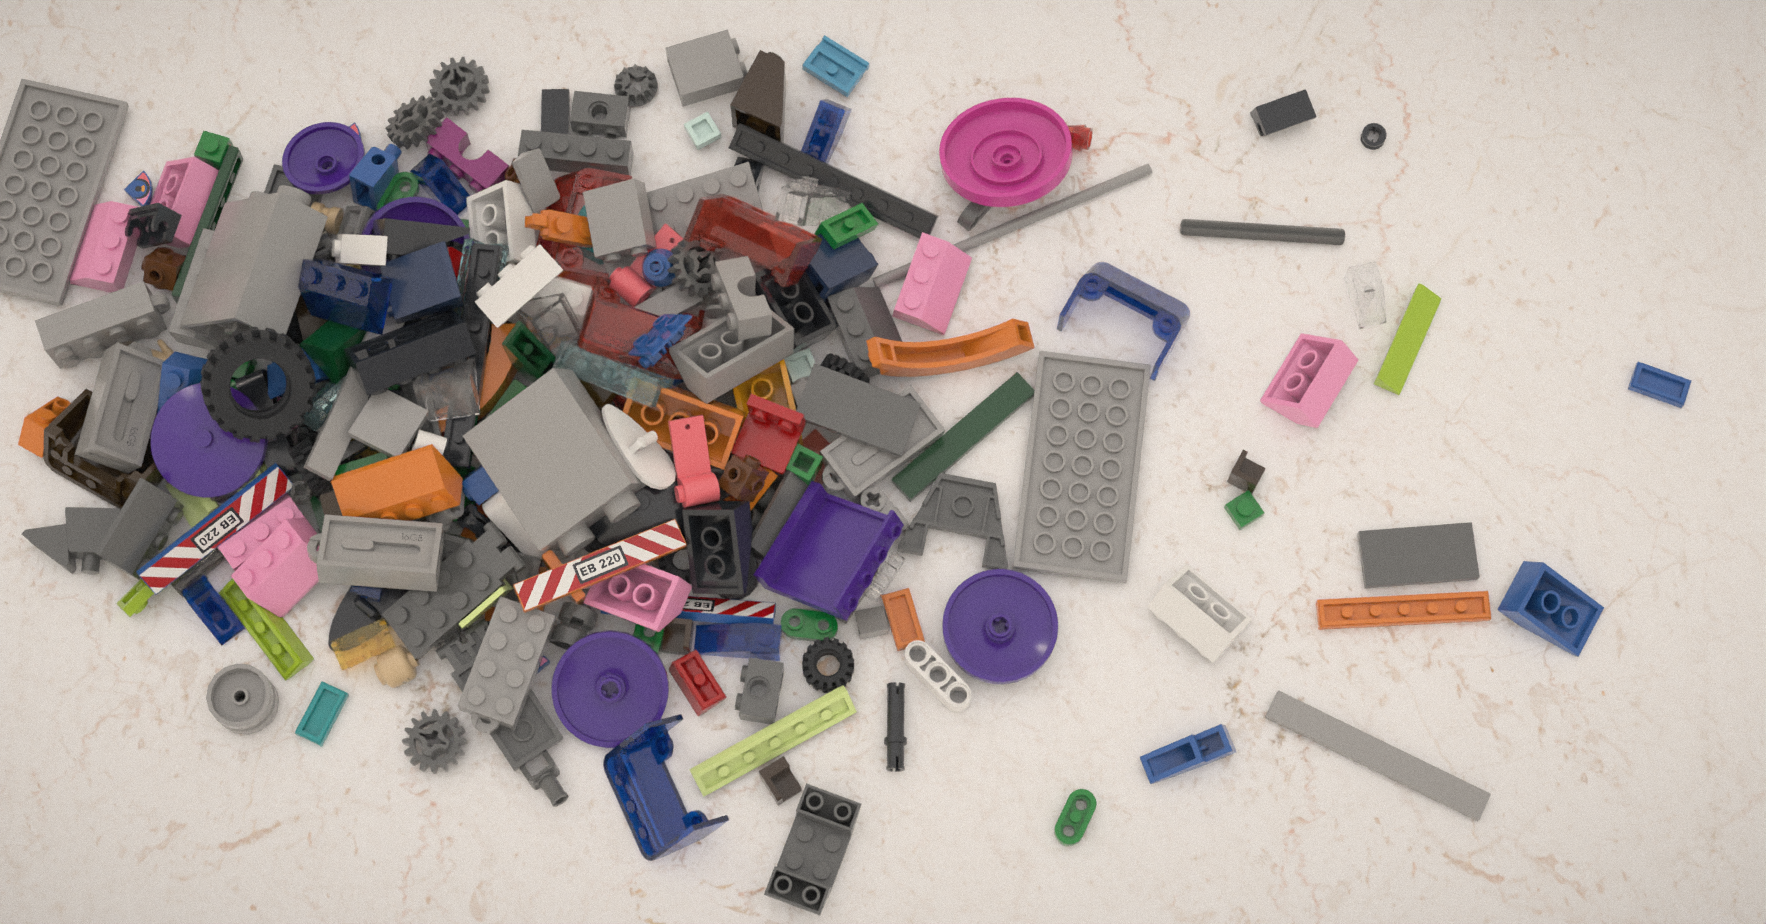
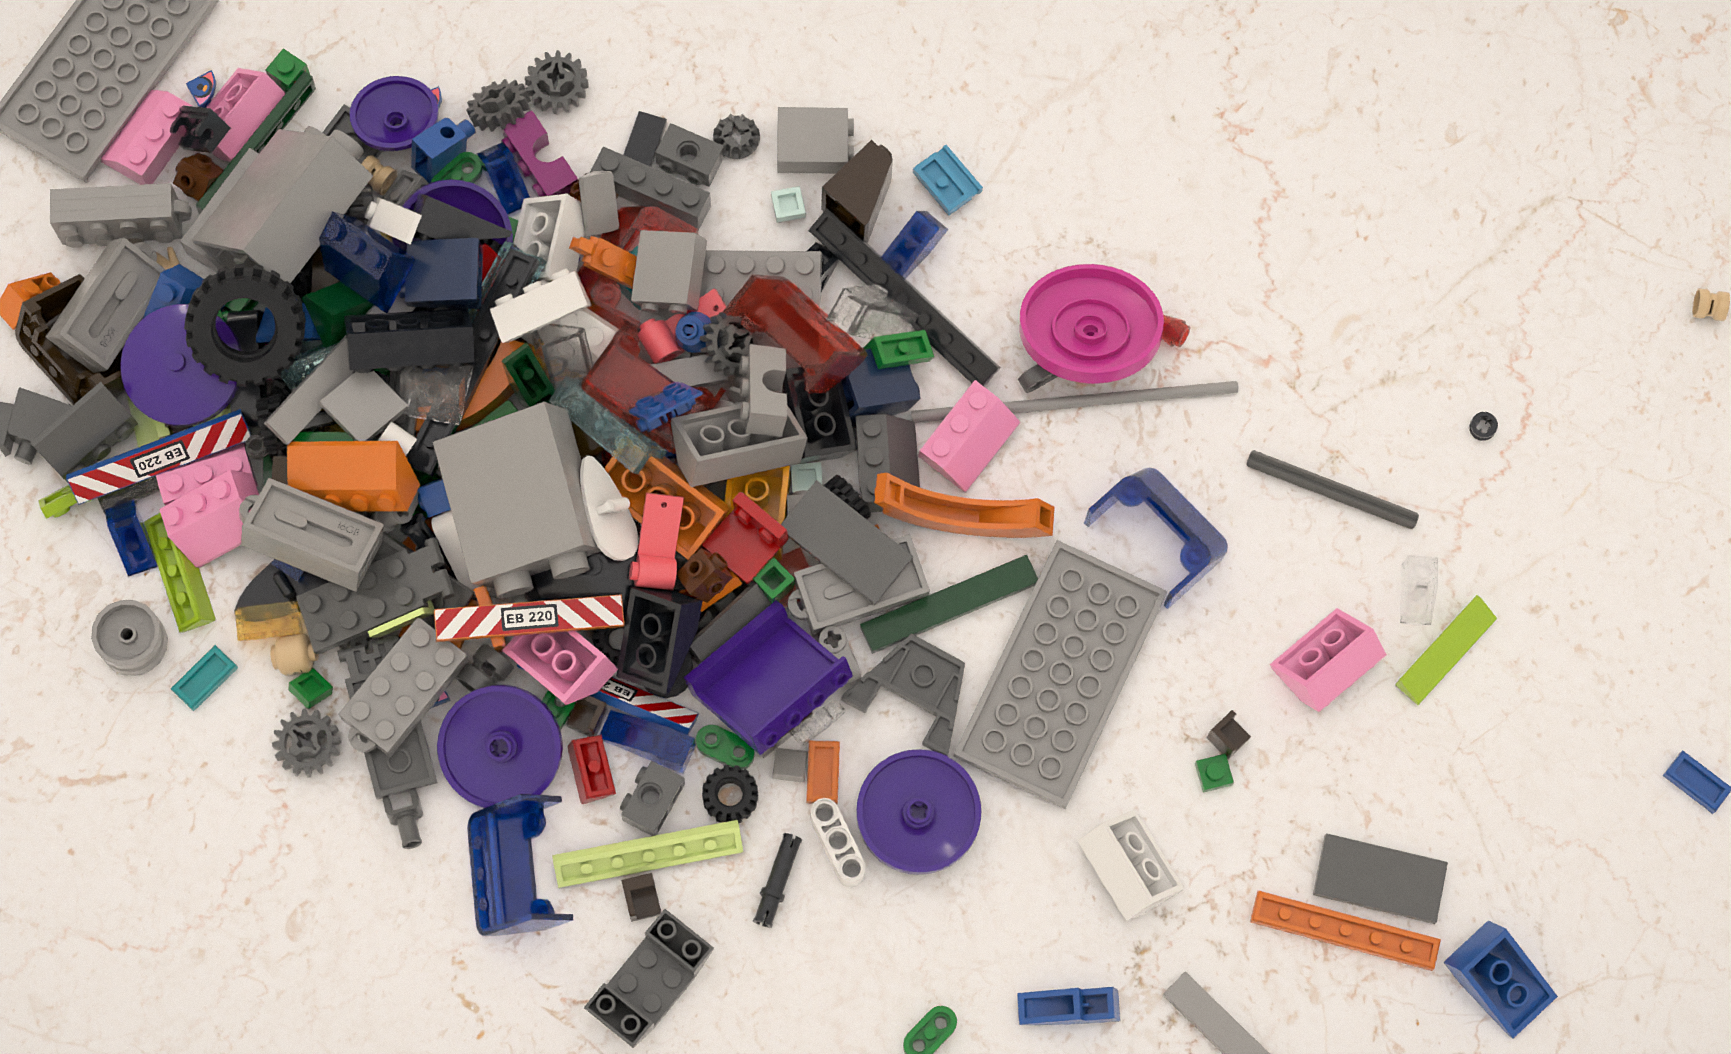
camera: 15 degrees right, 0 degrees up
(421, 692) = (310, 688): none -> green plate
(1283, 113) = (1396, 372): black hinge -> none

